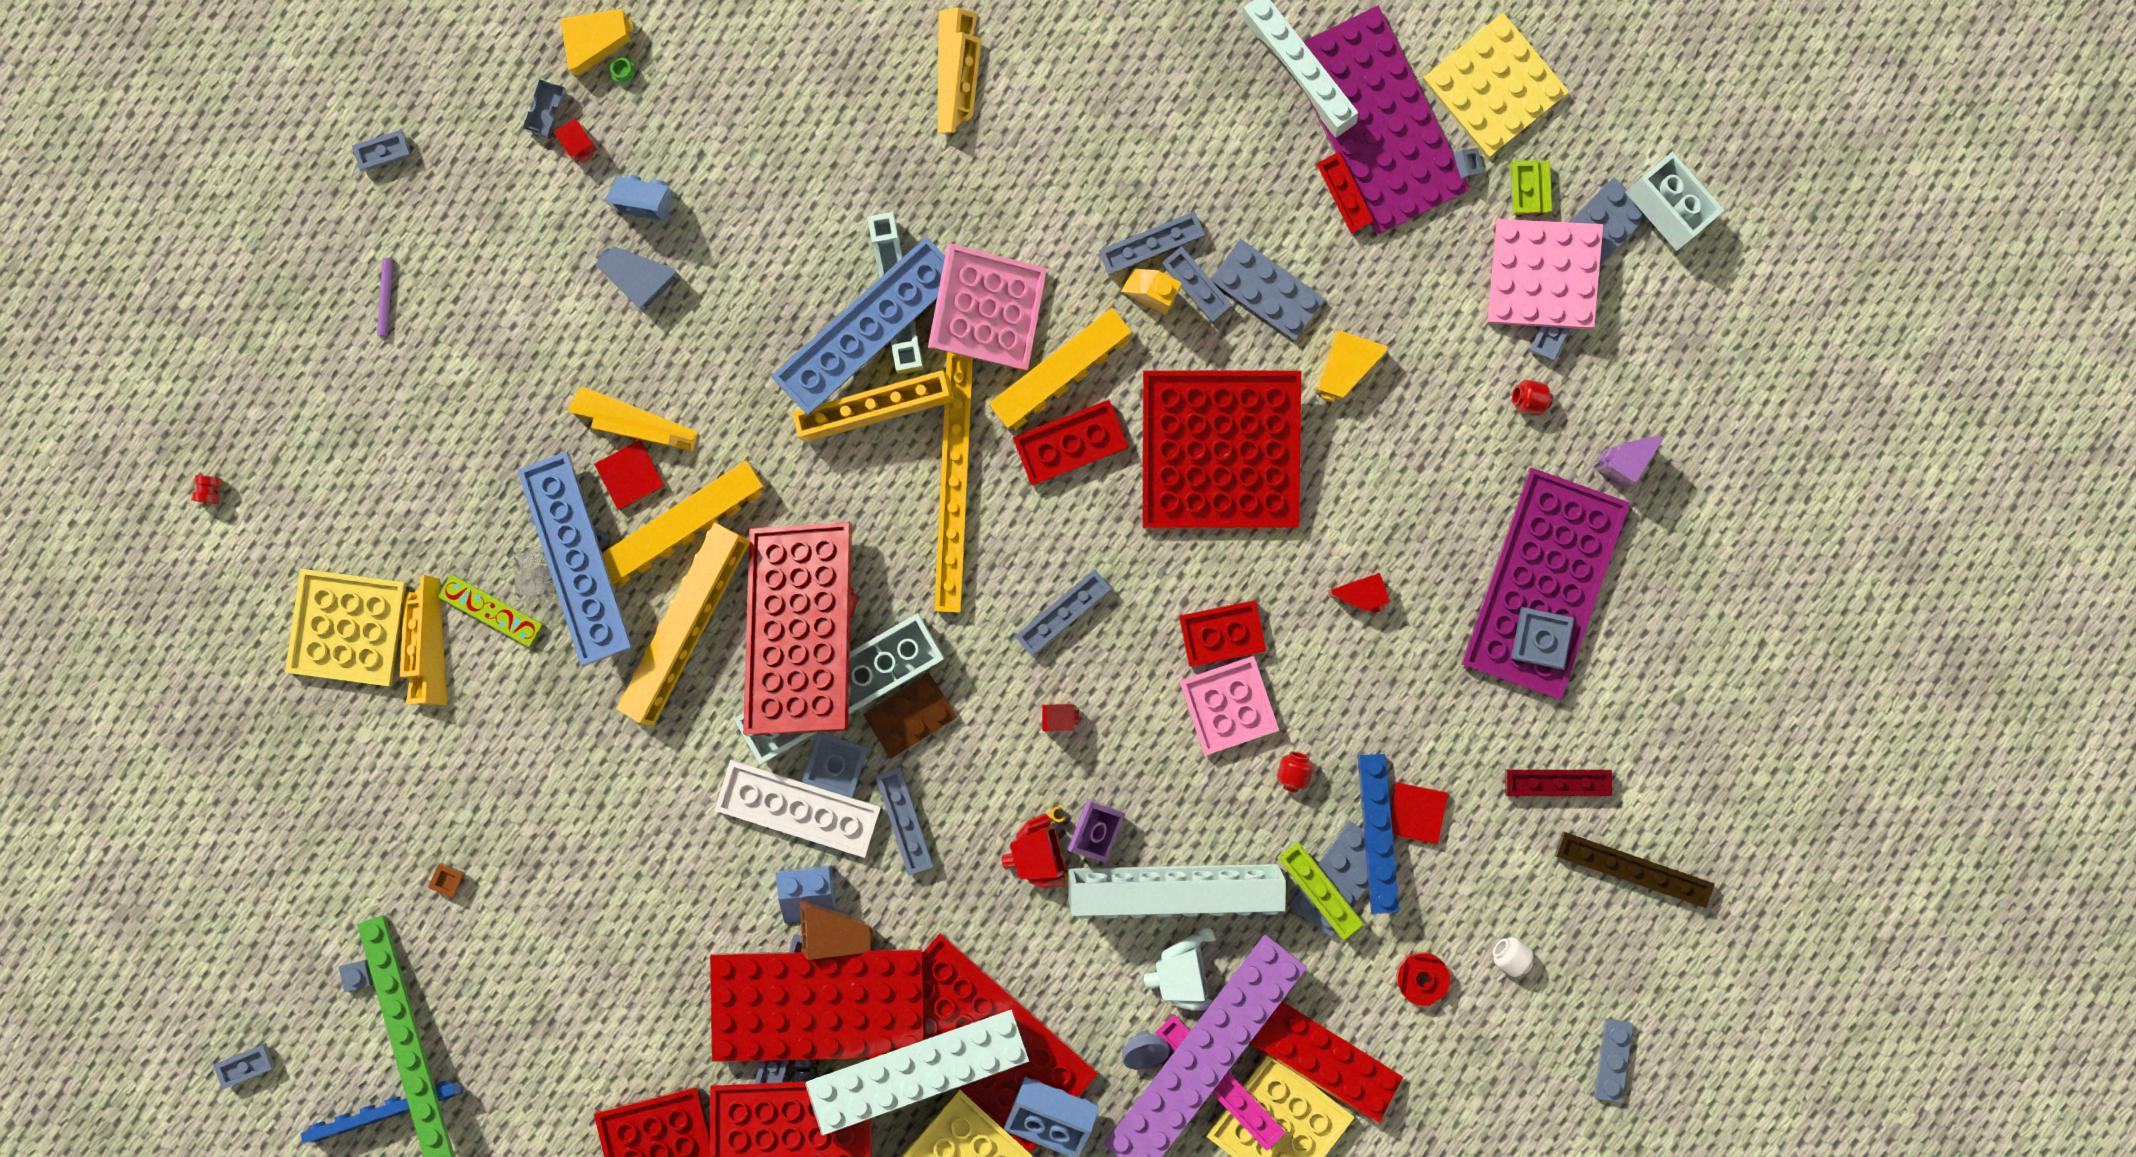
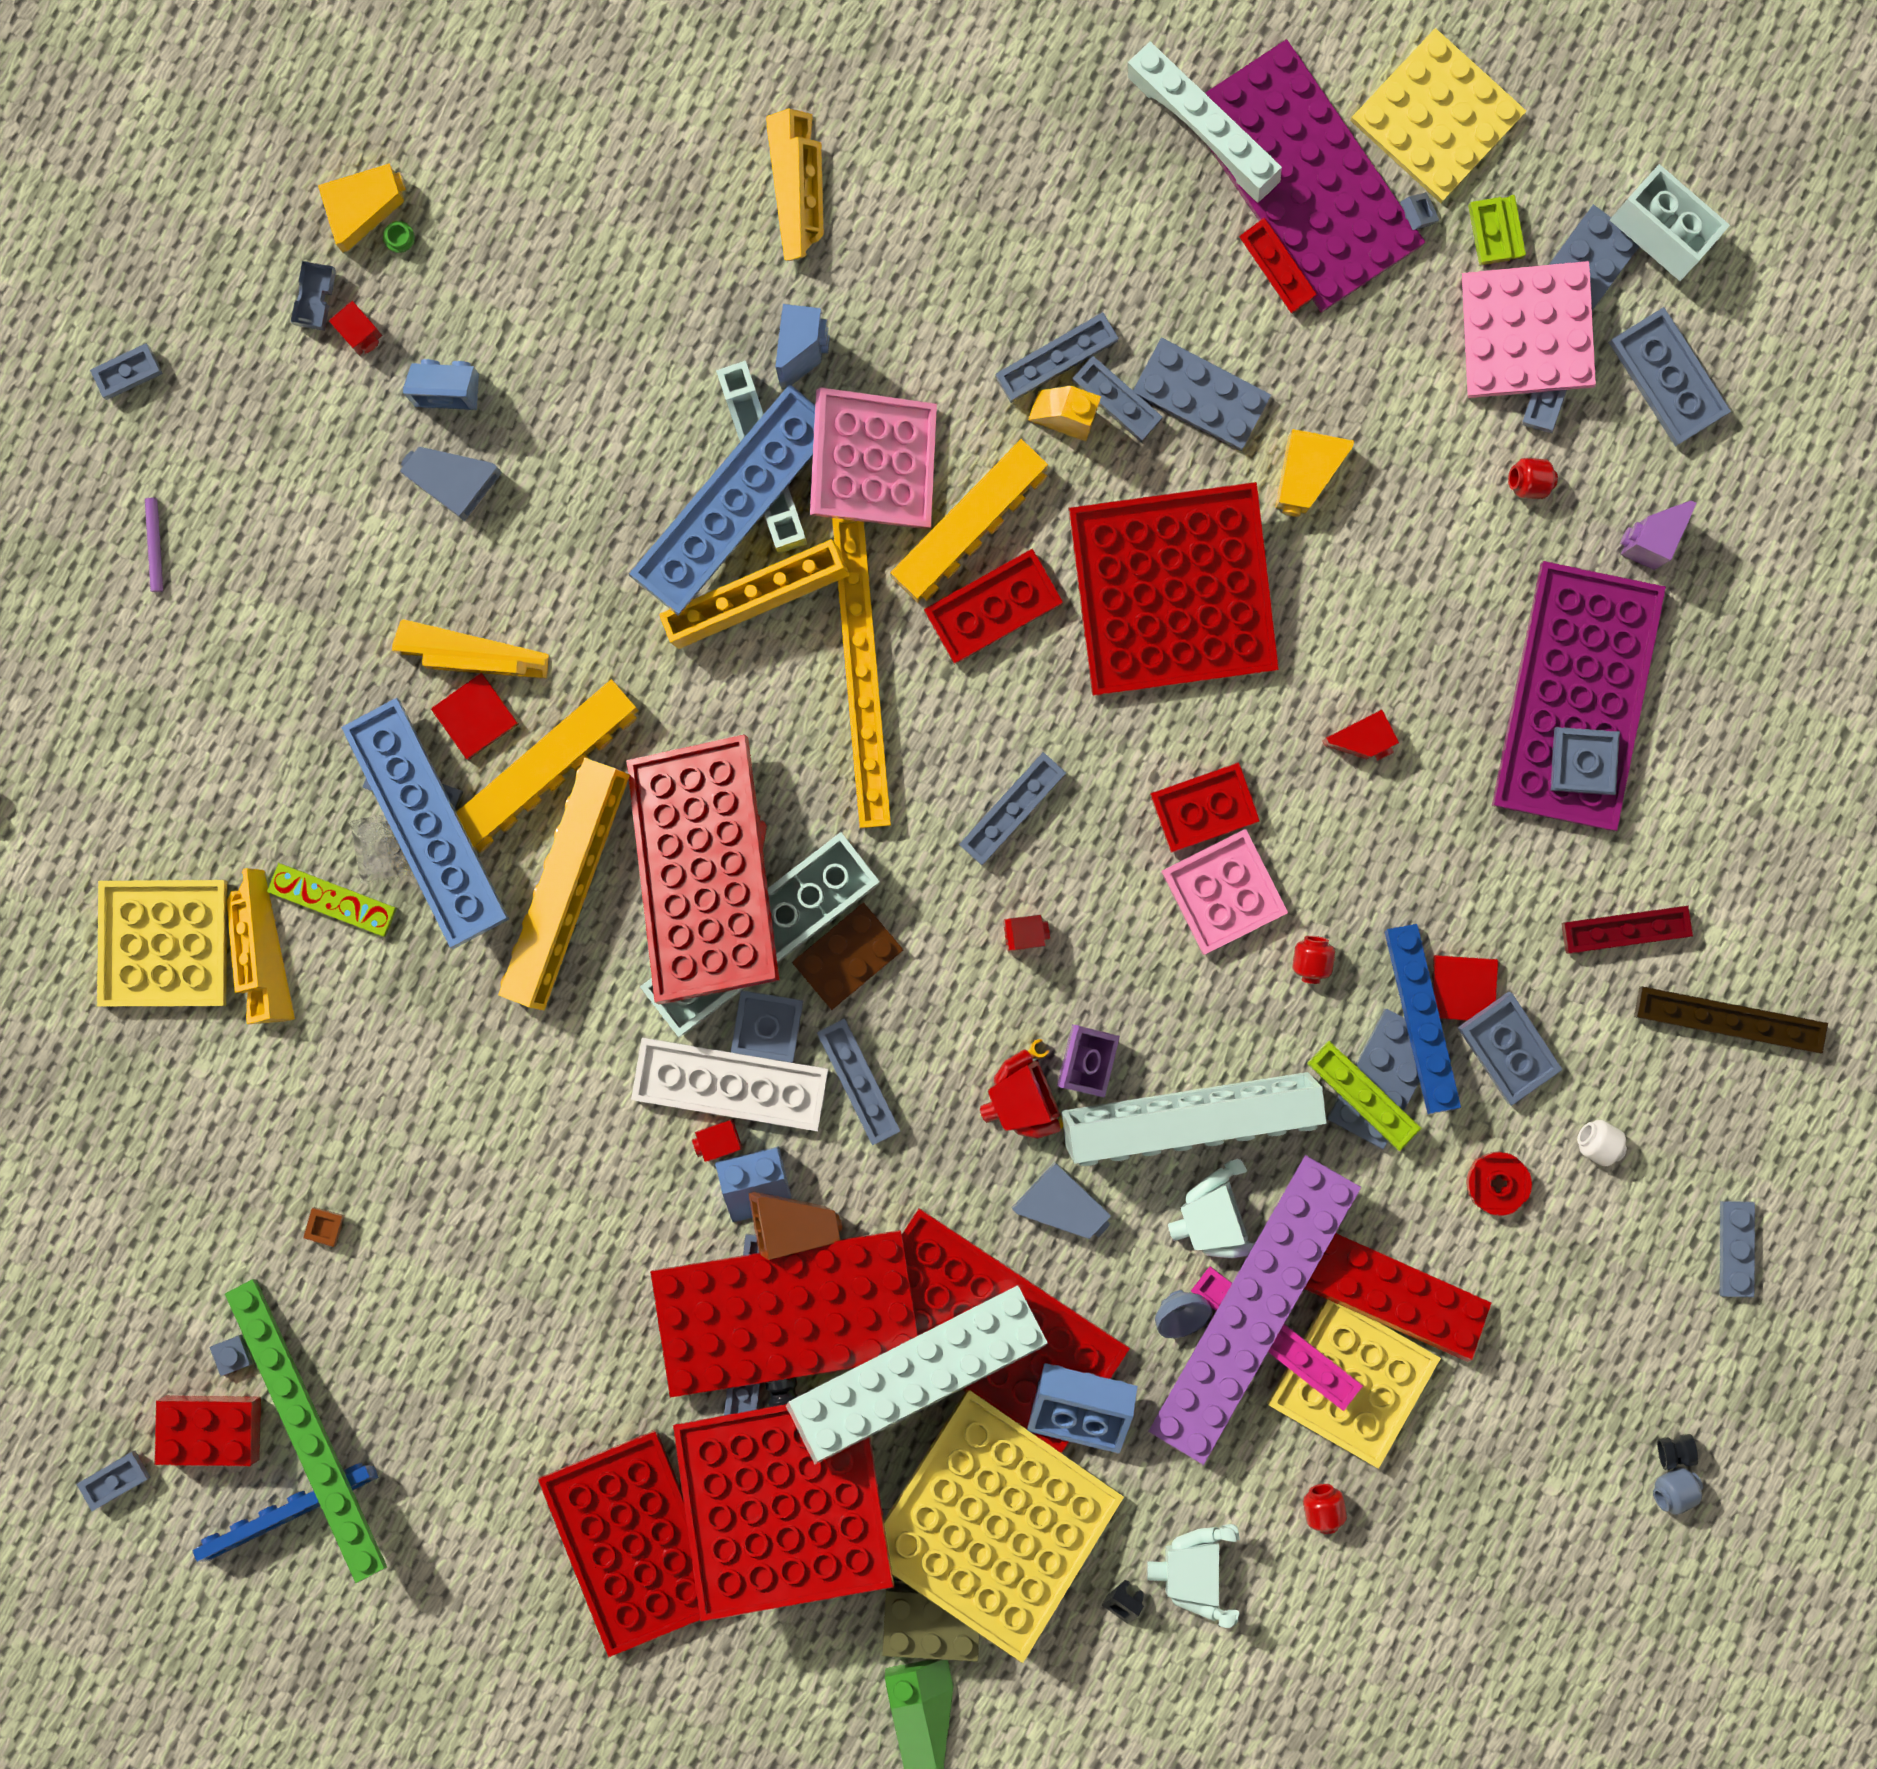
camera: 10 degrees left, 0 degrees up
(327, 1035) = (207, 1430): none -> red brick
(781, 854) = (717, 1140): none -> red brick
(939, 204) = (800, 342): none -> medium blue slope
(1059, 946) = (1063, 1204): none -> sand blue slope
(1447, 868) = (1510, 1048): none -> sand blue plate
(1657, 328) = (1669, 376): none -> sand blue plate

